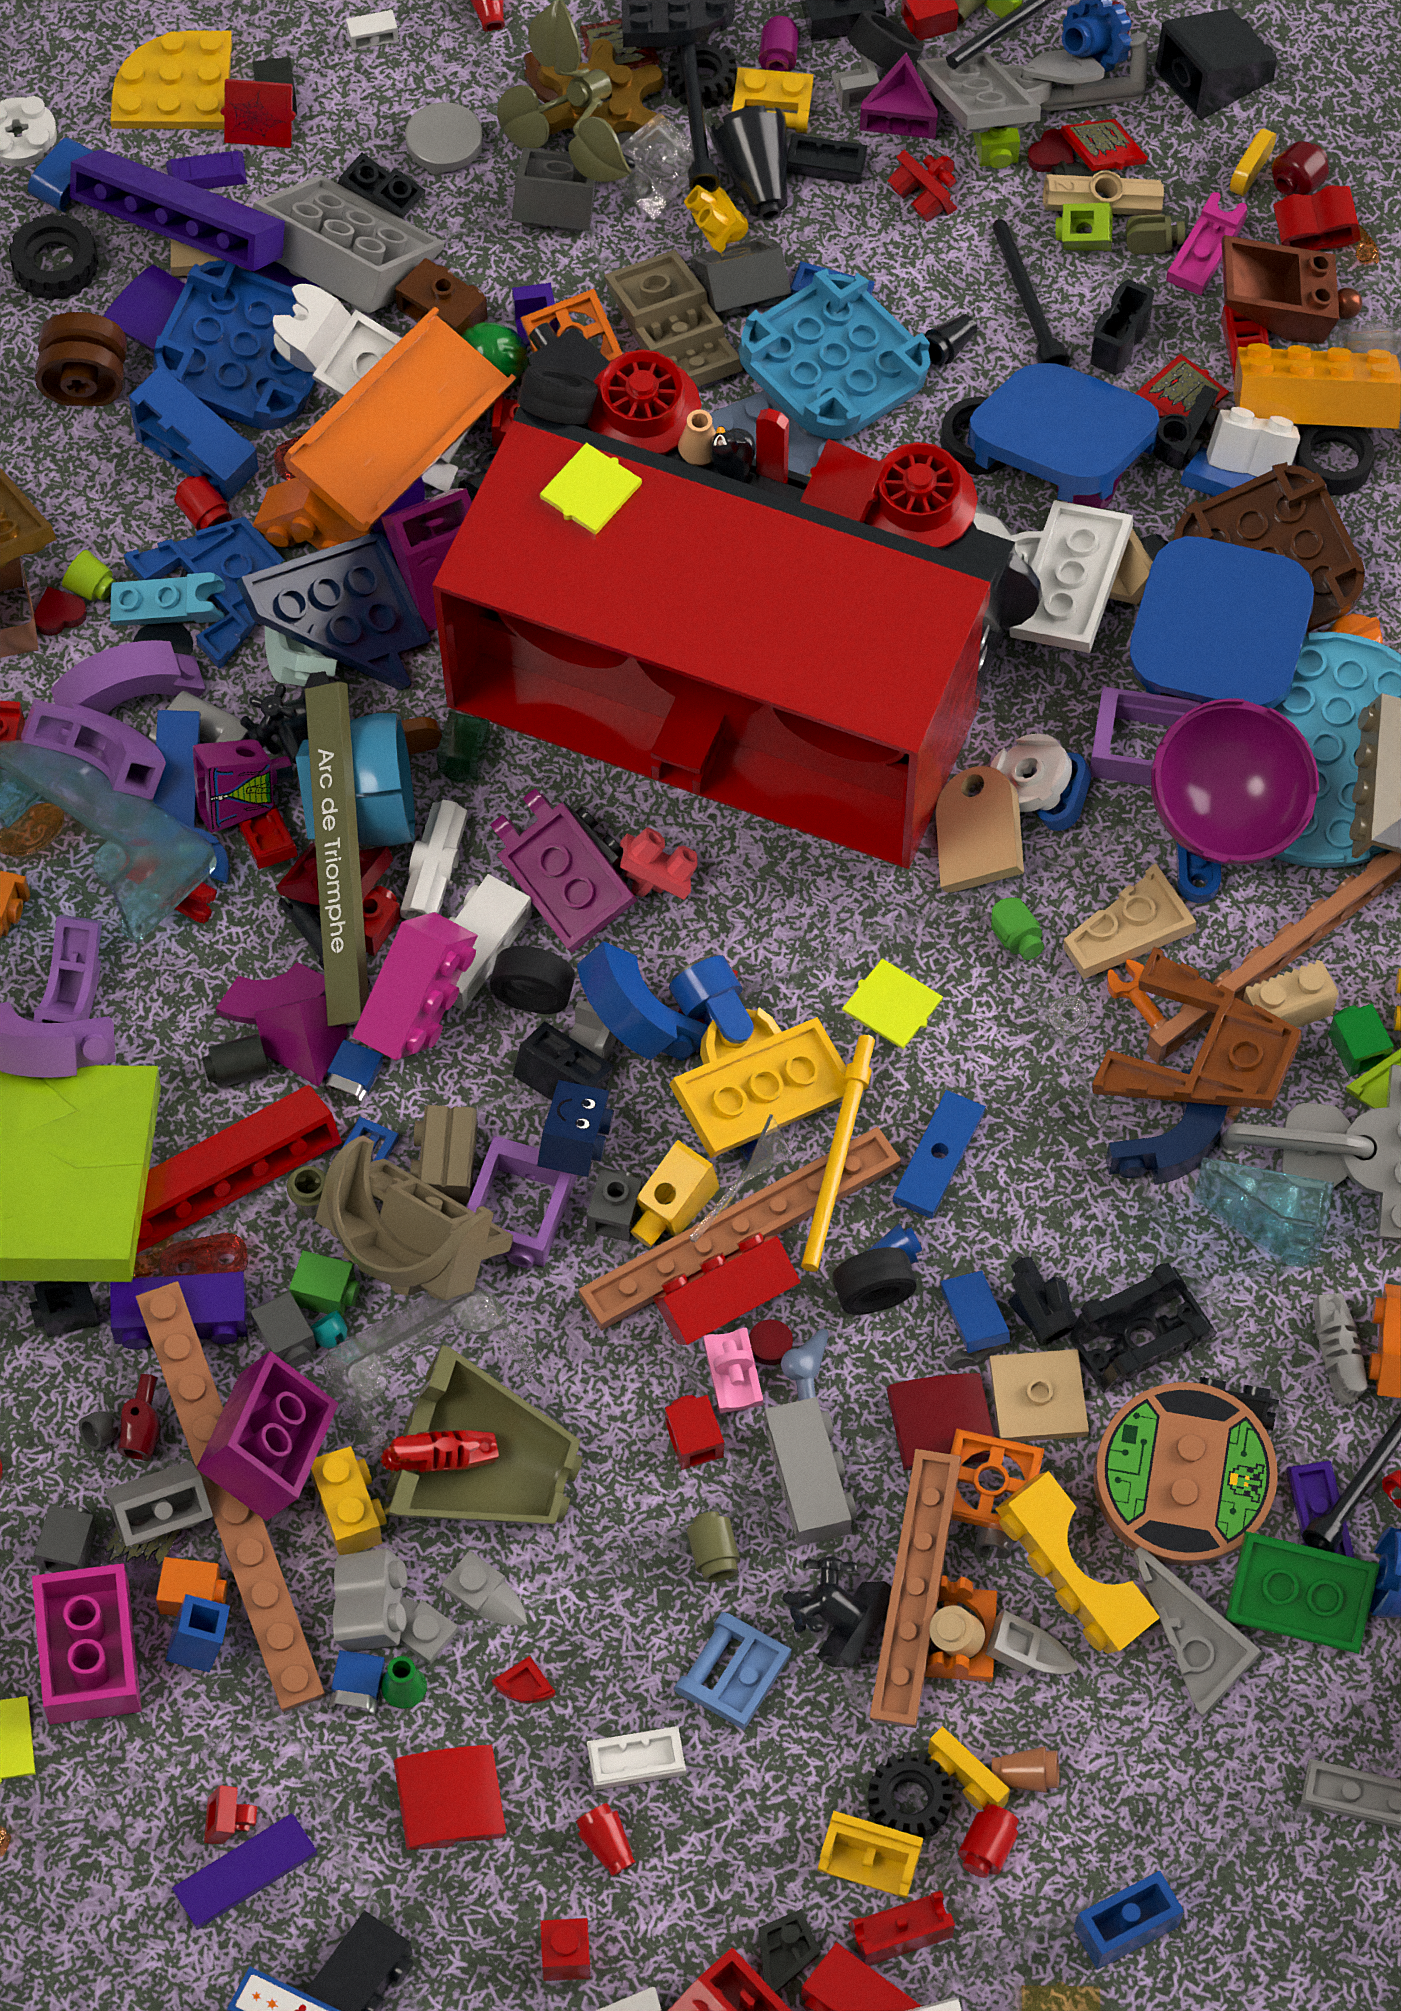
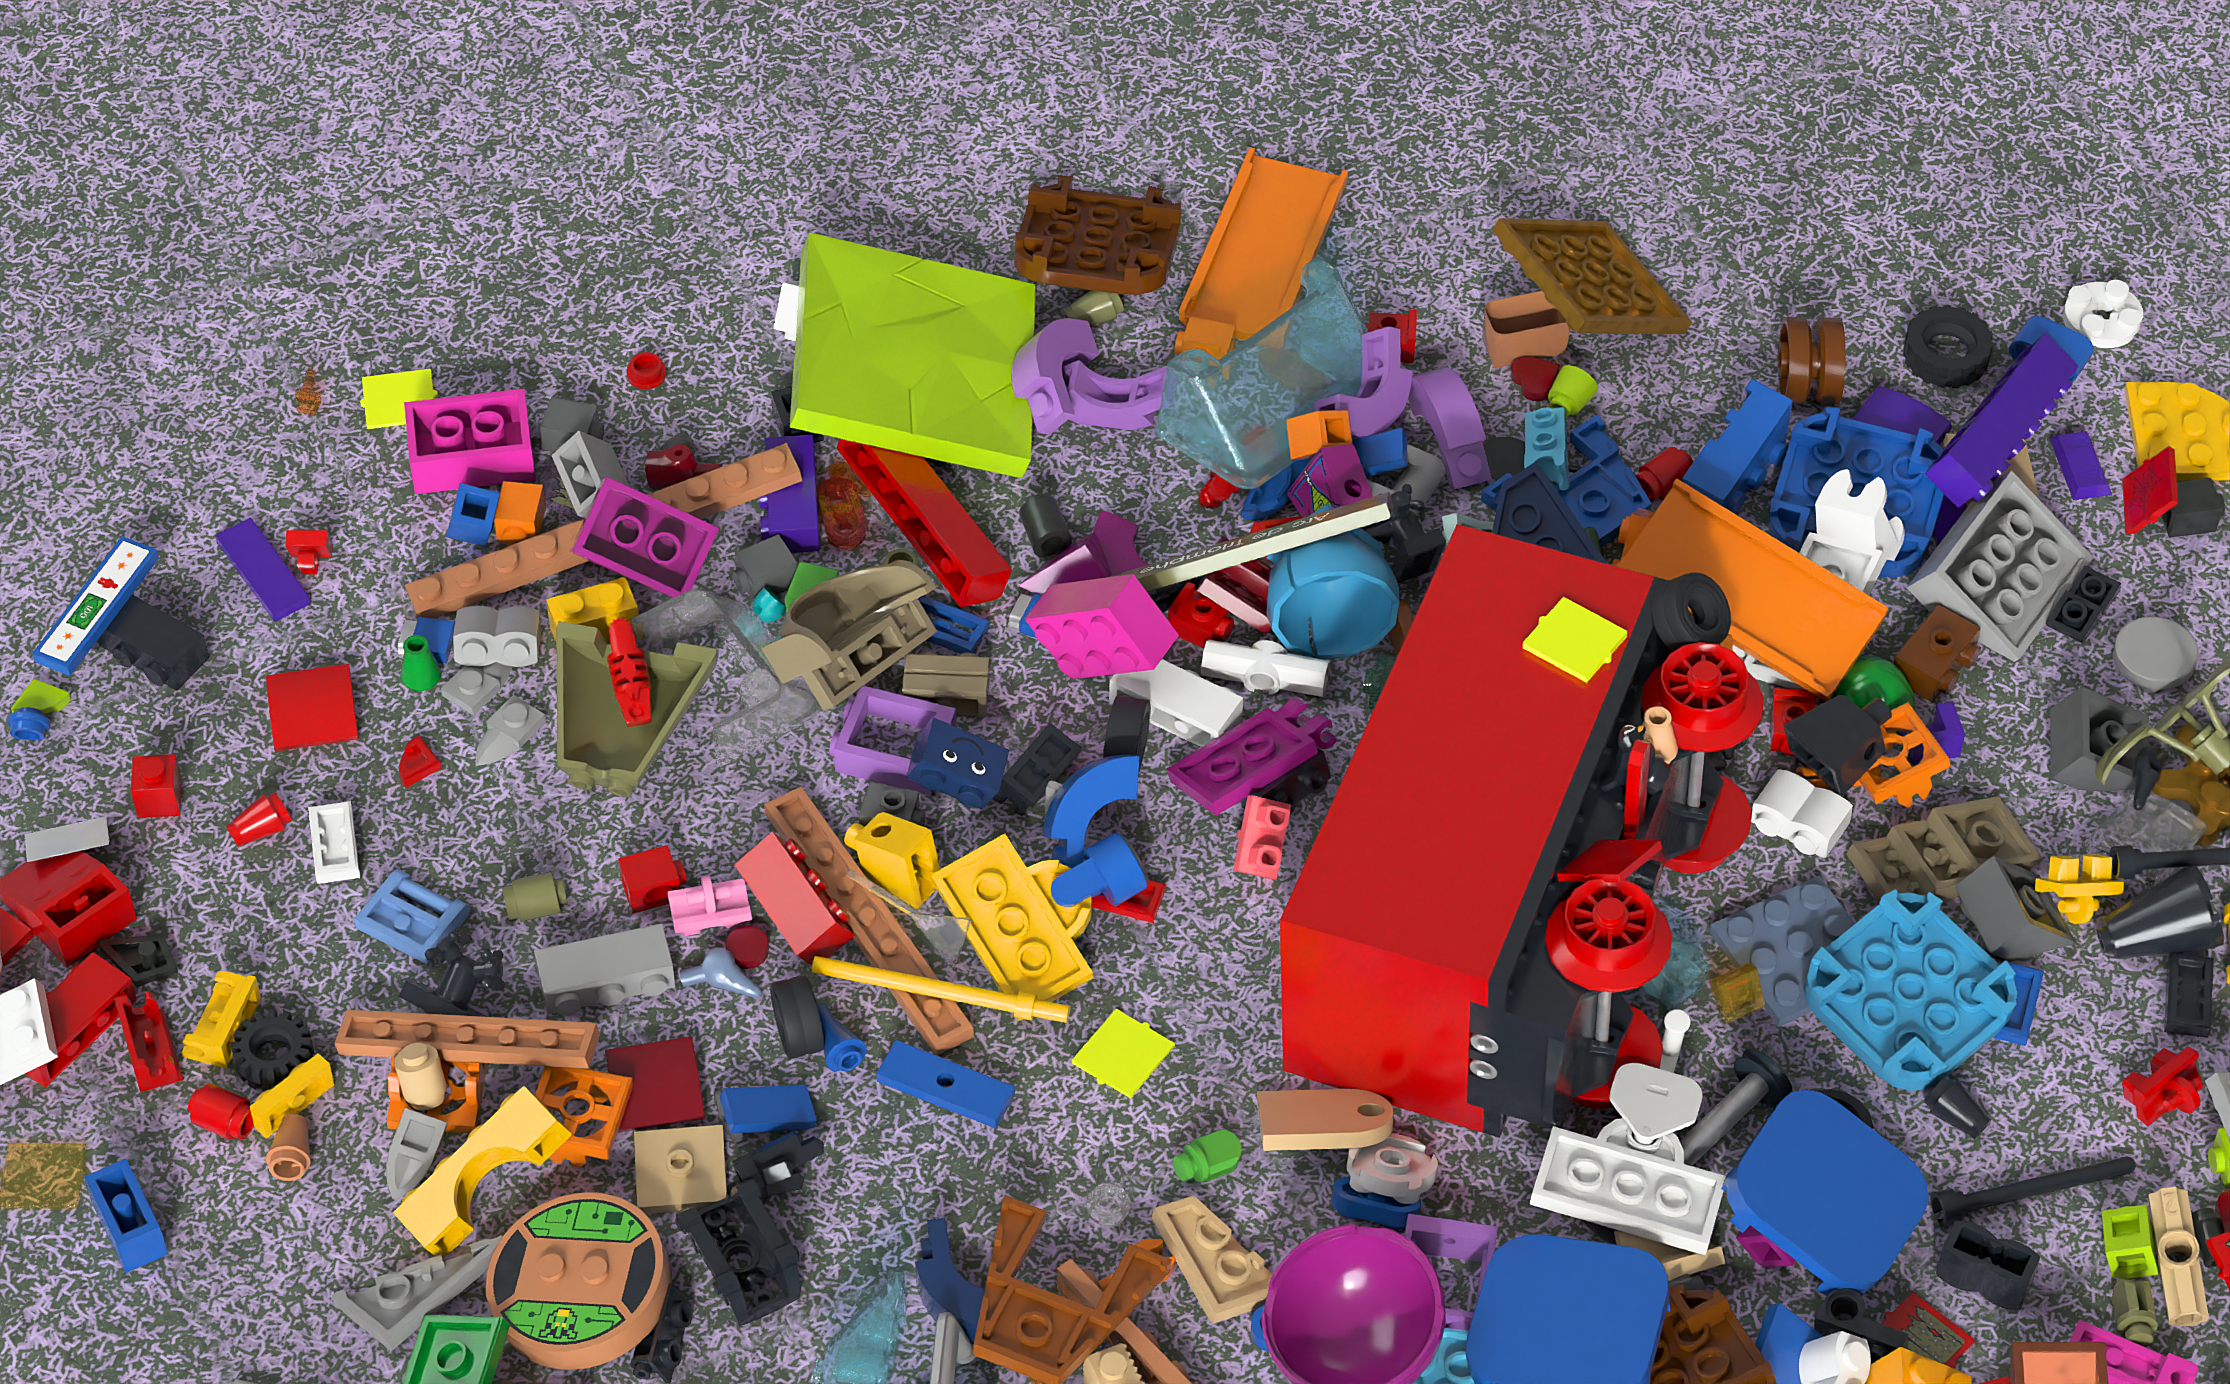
camera: 90 degrees right, 10 degrees down
(170, 780) = (1317, 430): none -> orange brick

